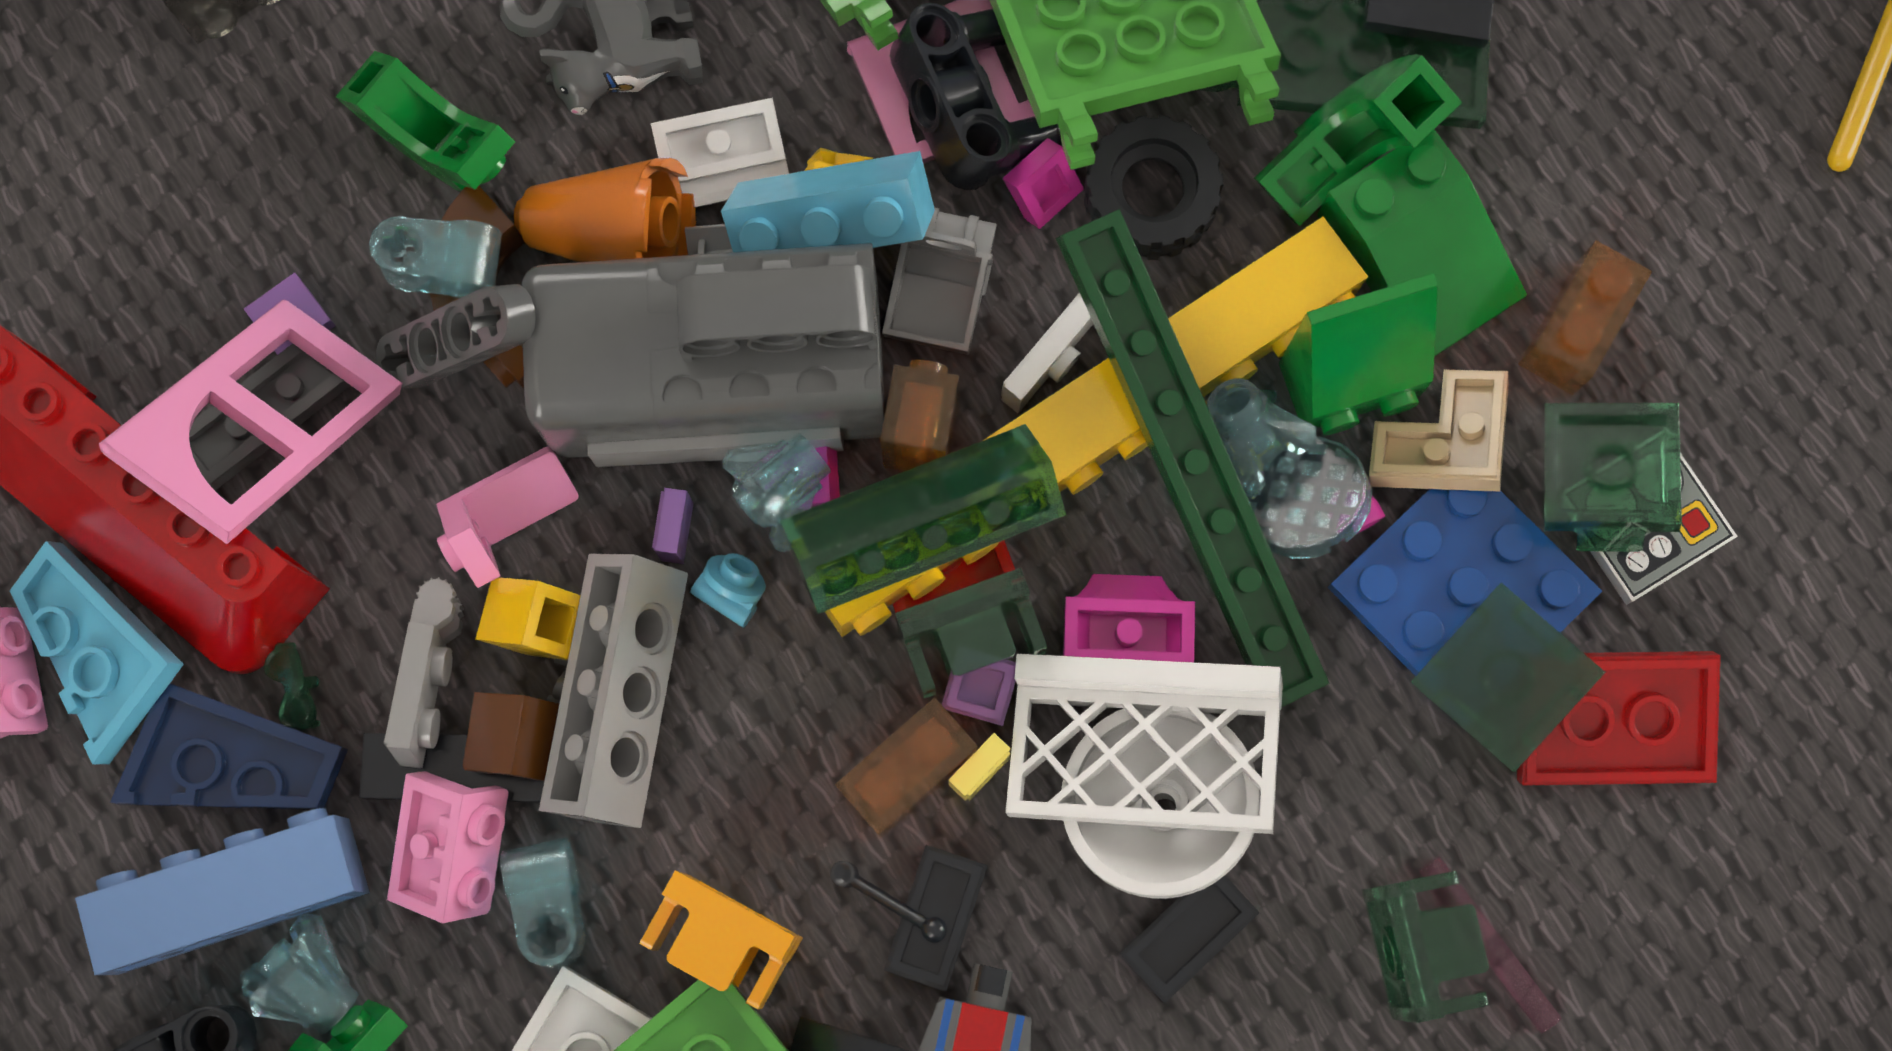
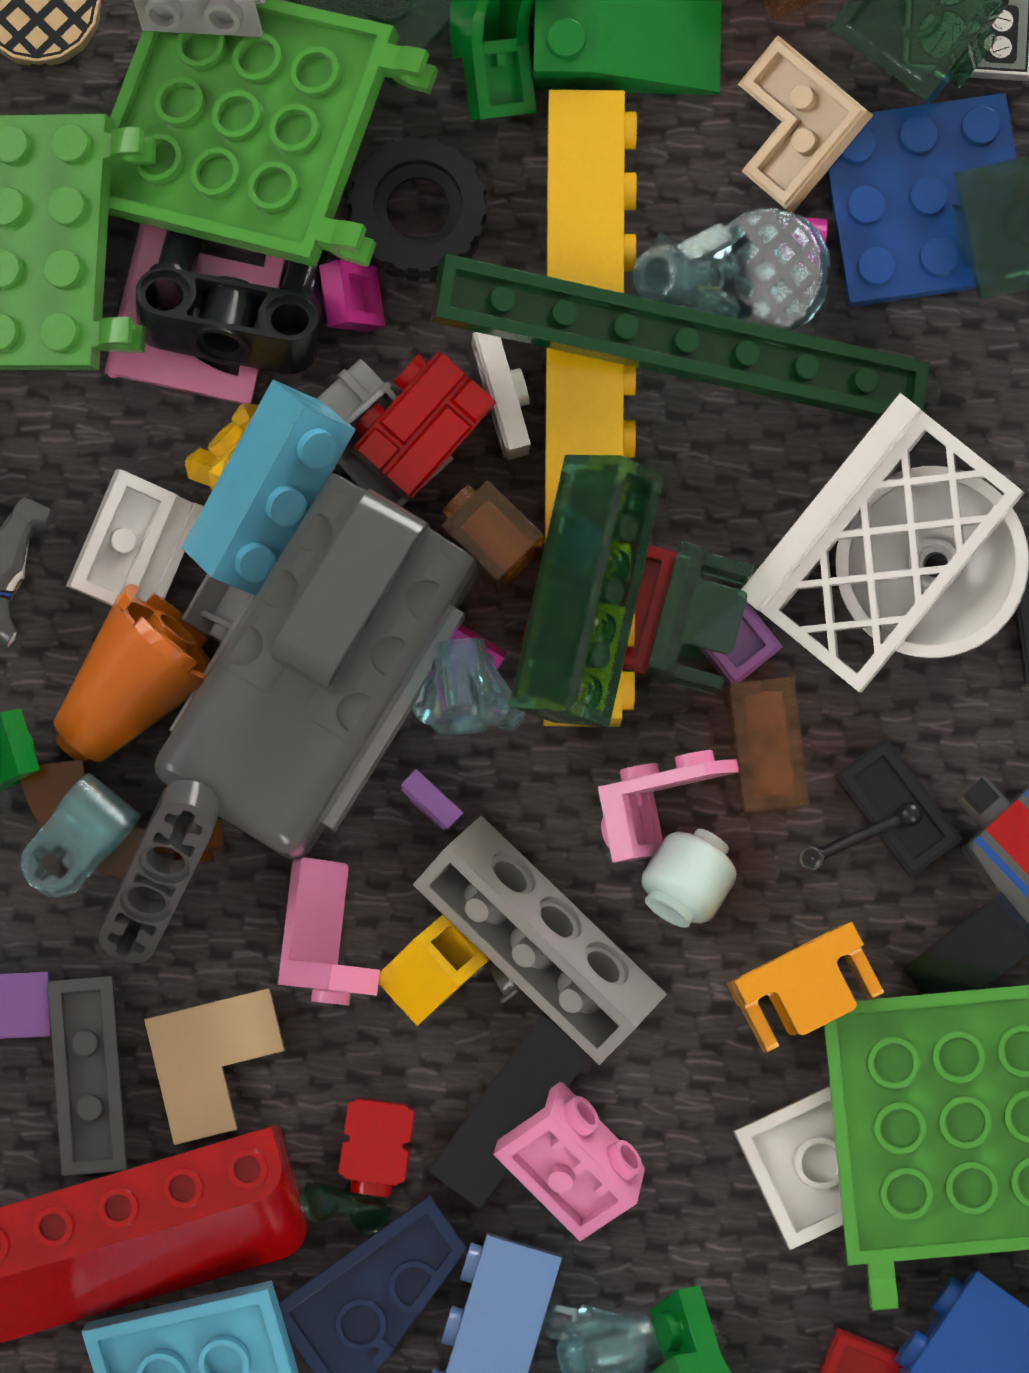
camera: 60 degrees left, 5 degrees up
(157, 442) = (88, 1167): bright pink window -> none
(346, 670) = (376, 1148): none -> red brick
(354, 483) = (191, 1054): none -> tan tile
(422, 669) = (413, 1083): light grey hinge -> none
(510, 735) = (520, 1048): reddish brown panel -> none
(545, 888) = (659, 1109): clear light blue piece -> none
(731, 587) = (513, 789): medium azure plate -> none
(753, 780) = (688, 877): none -> light aqua head
(776, 695) = (629, 806): none -> bright pink bracket
(972, 299) = (421, 424): none -> red brick
(980, 767) = (807, 687): light yellow tile -> none
(1129, 620) = (769, 486): dark pink slope -> none
(1363, 355) = (694, 146): green slope -> none

